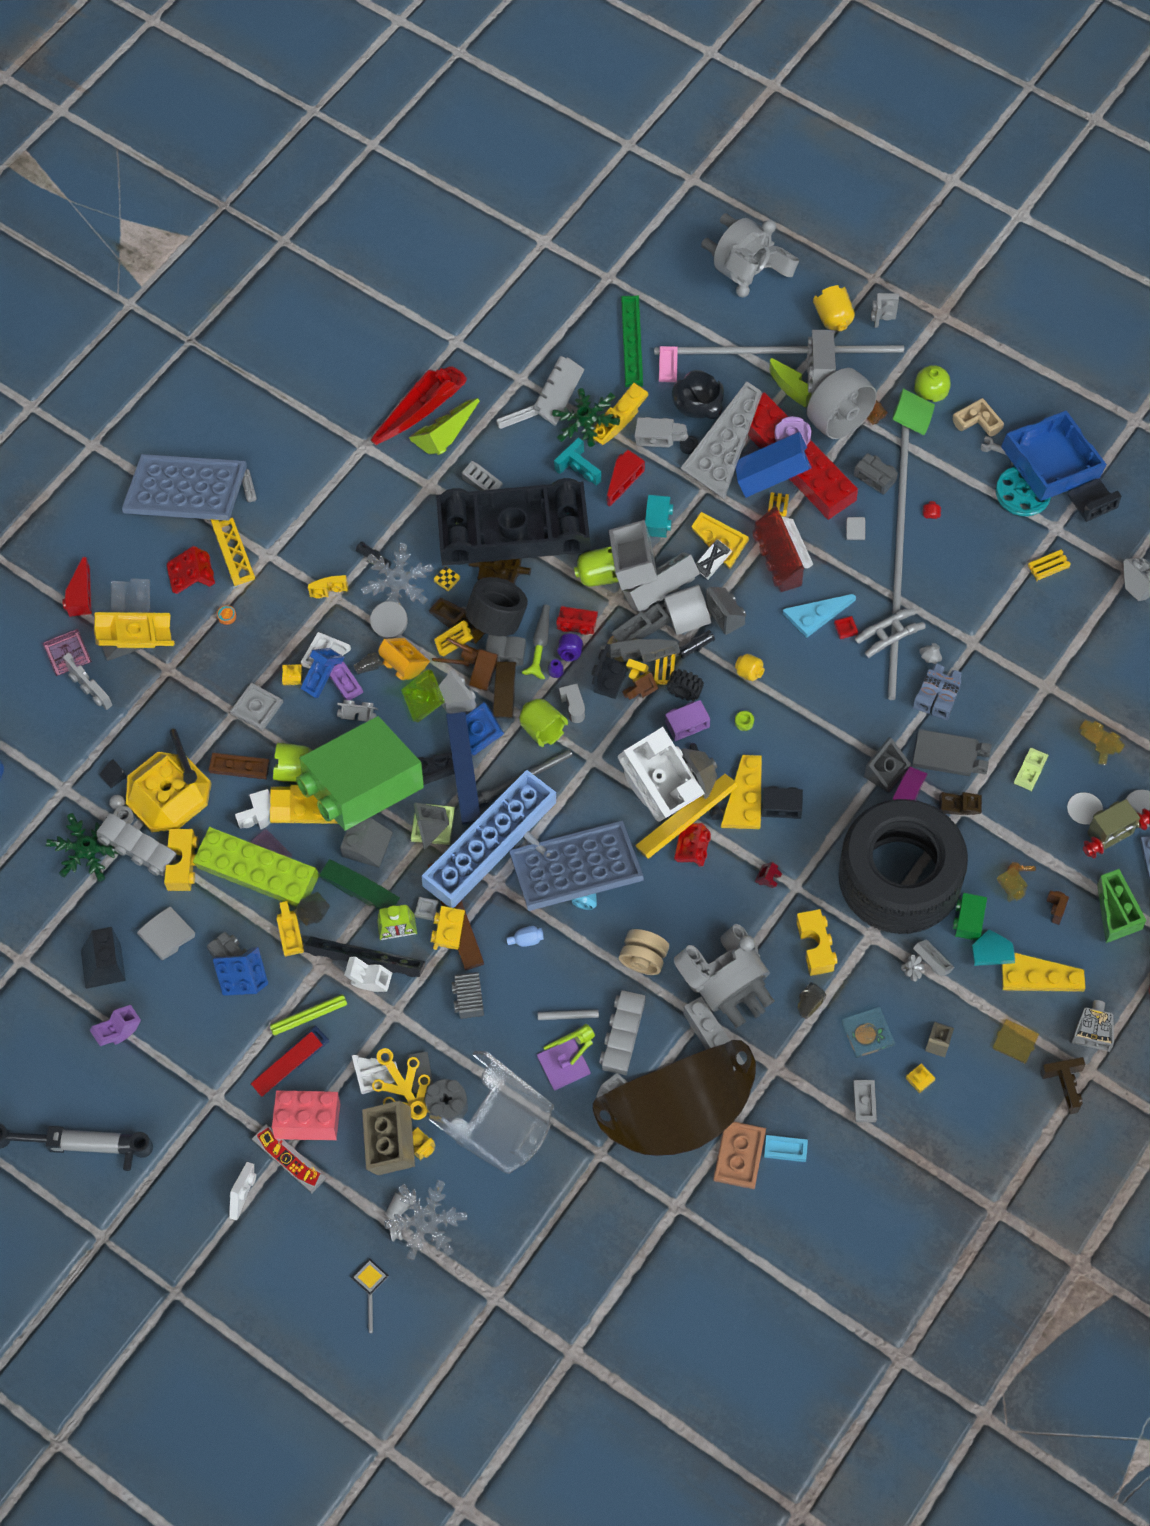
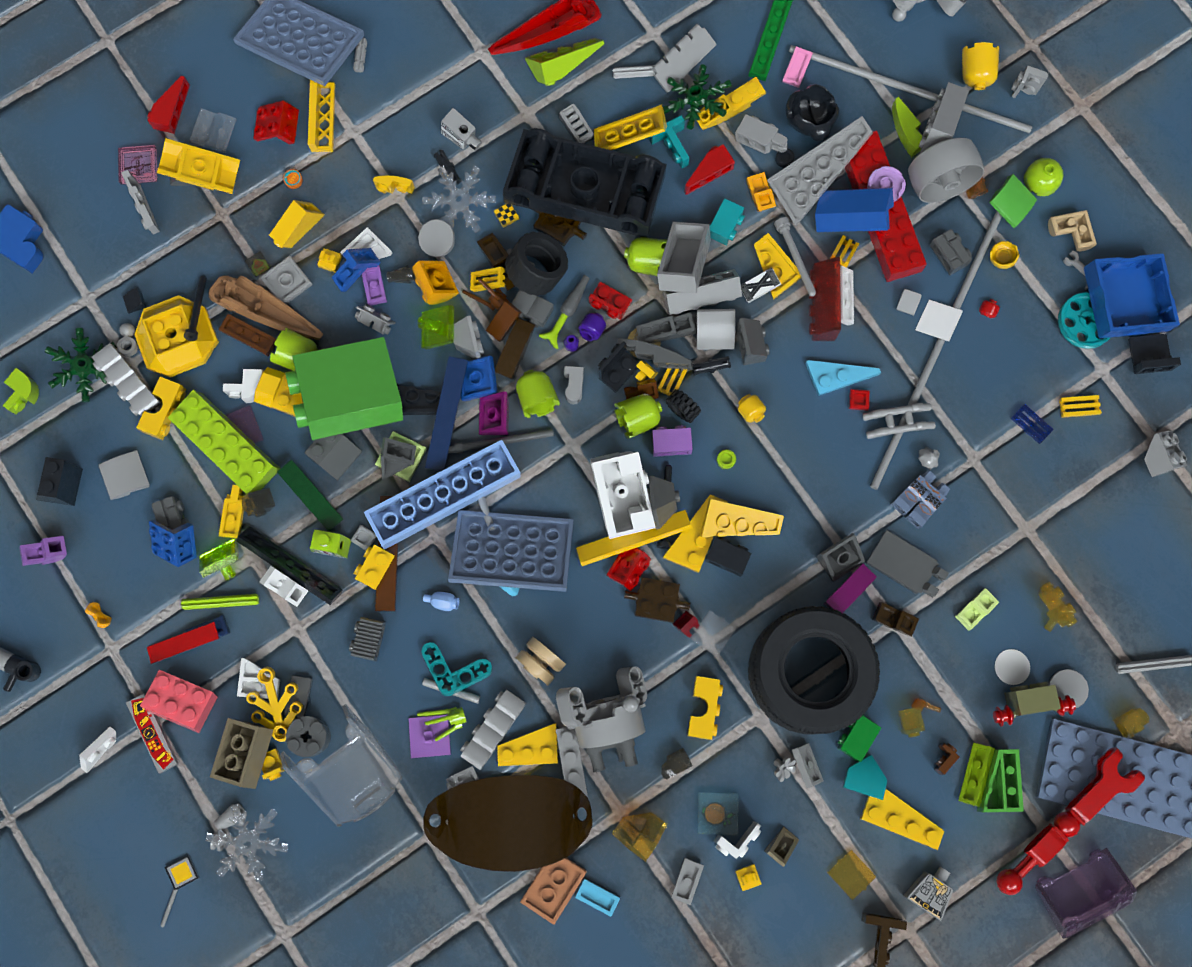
camera: 20 degrees right, 15 degrees up
(34, 890) = (25, 391): none -> lime brick
(185, 1065) = (102, 620): none -> light orange piece
(222, 701) = (257, 264): none -> clear smoke tile
(240, 735) = (259, 305): none -> medium nougat piece
(246, 652) = (295, 223): none -> yellow slope
(295, 973) = (220, 559): none -> clear neon green tile
(373, 518) = (459, 130): none -> light grey torso
(508, 754) = (494, 414): none -> magenta slope
(536, 463) = (631, 129): none -> yellow slope
(564, 1000) = (453, 678): none -> teal beam
(645, 707) = (638, 414): none -> lime cylinder
(666, 1039) = (530, 749): none -> yellow wing
(678, 480) = (760, 192): none -> light orange slope
(712, 502) = (783, 226): none -> light grey piece
(731, 864) = (657, 600): none -> dark brown plate
(778, 766) = (736, 520): none -> yellow wing
(796, 875) = (713, 633): none -> clear piece
(801, 1076) = (640, 833): none -> clear yellow slope
(890, 535) = (939, 320): none -> white sticker
(892, 1052) = (741, 847): none -> white bracket
(925, 460) = (1004, 255): none -> yellow hair
(1012, 597) = (1027, 429): none -> clear blue tile
(1092, 910) = (976, 774): none -> lime plate

